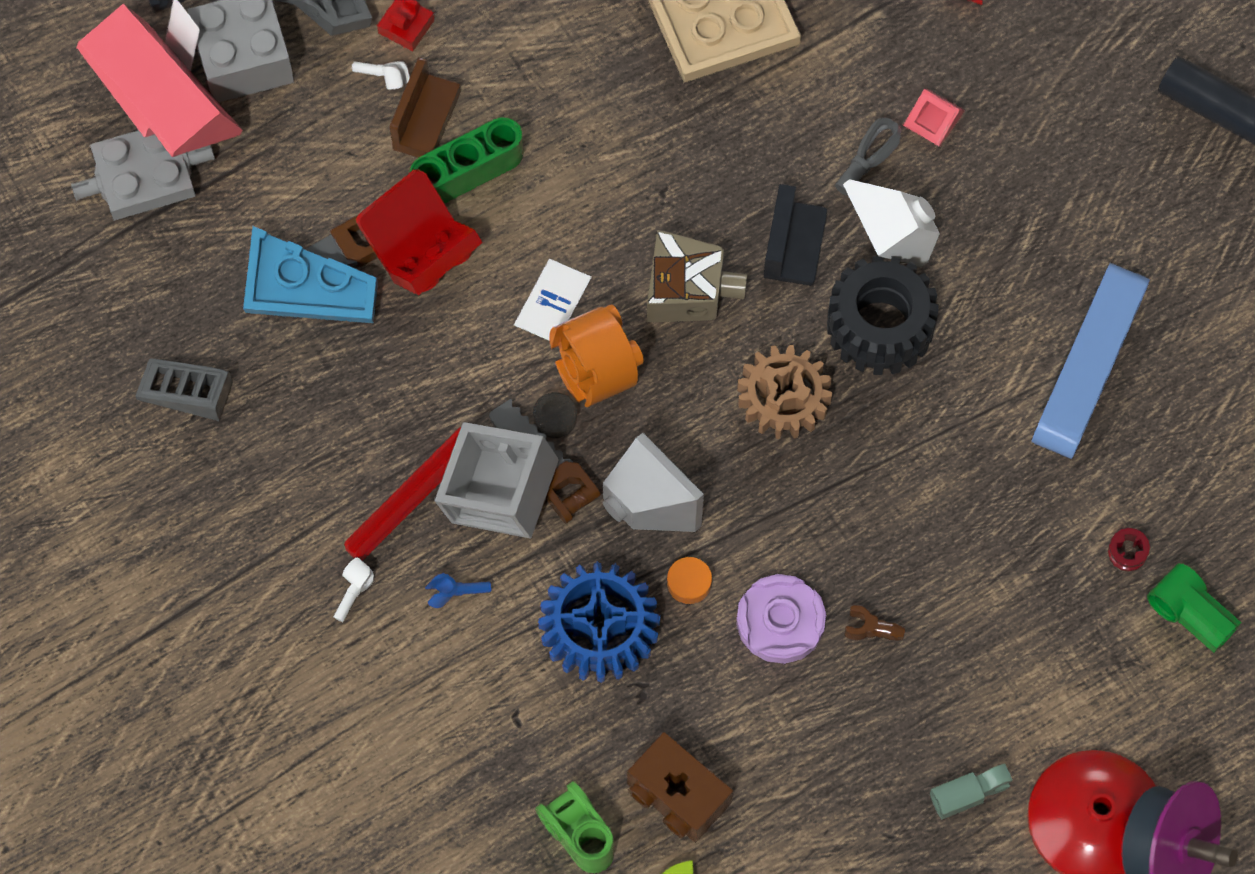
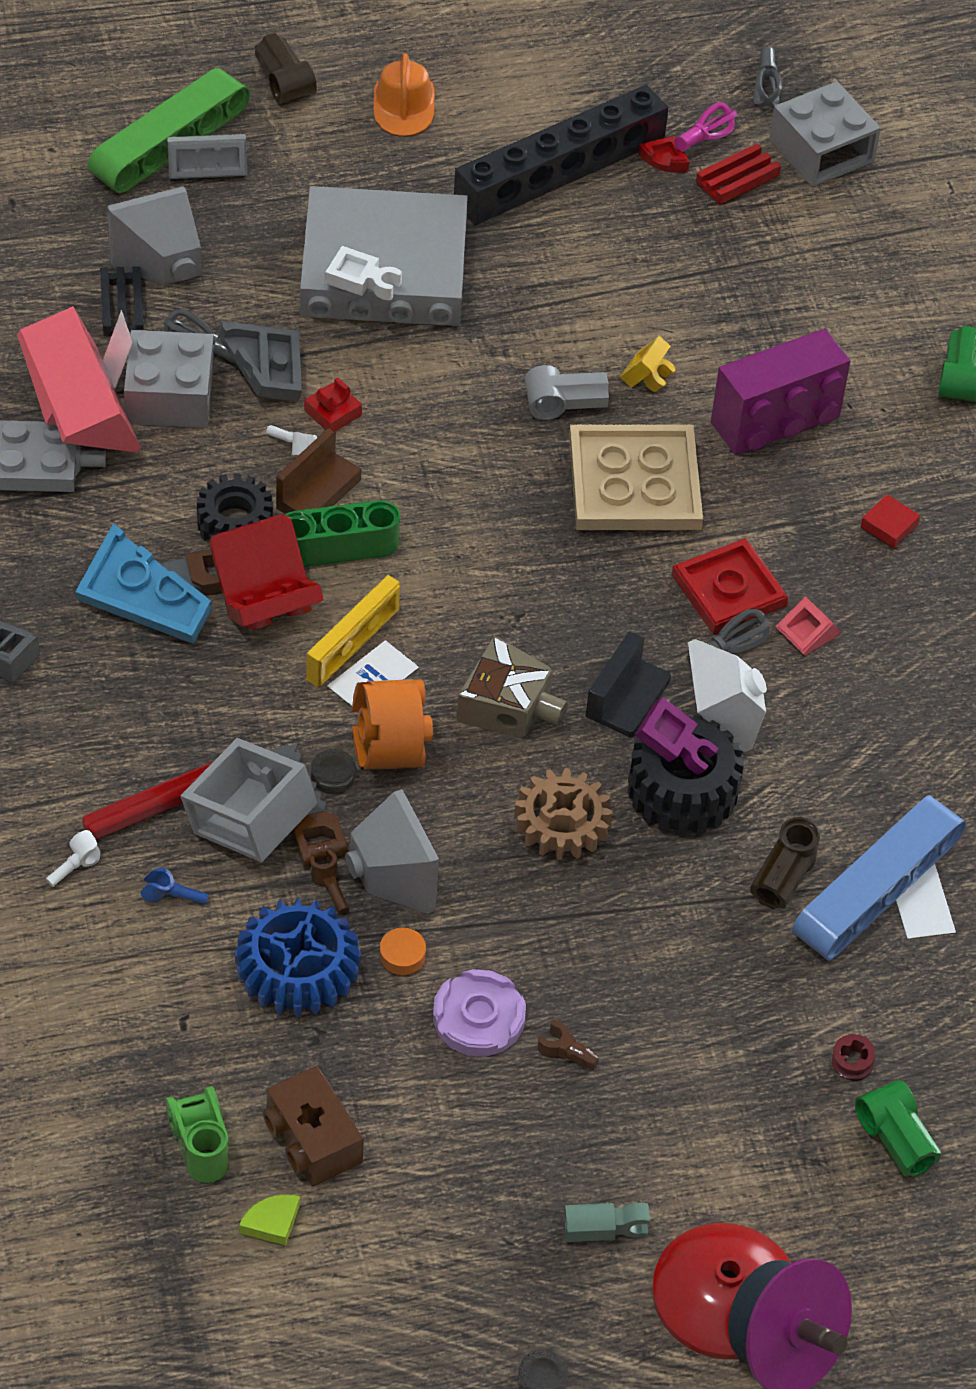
camera: 15 degrees right, 15 degrees down
(357, 150) = (229, 495): none -> black tyre
(520, 263) = (352, 631): none -> yellow tile
(593, 528) = (327, 877): none -> reddish brown hand
(846, 95) = (727, 583): none -> red tile
(864, 290) = (670, 735): none -> magenta plate
(1003, 376) = (787, 863): none -> dark brown piece
(1138, 373) = (925, 907): none -> white sticker

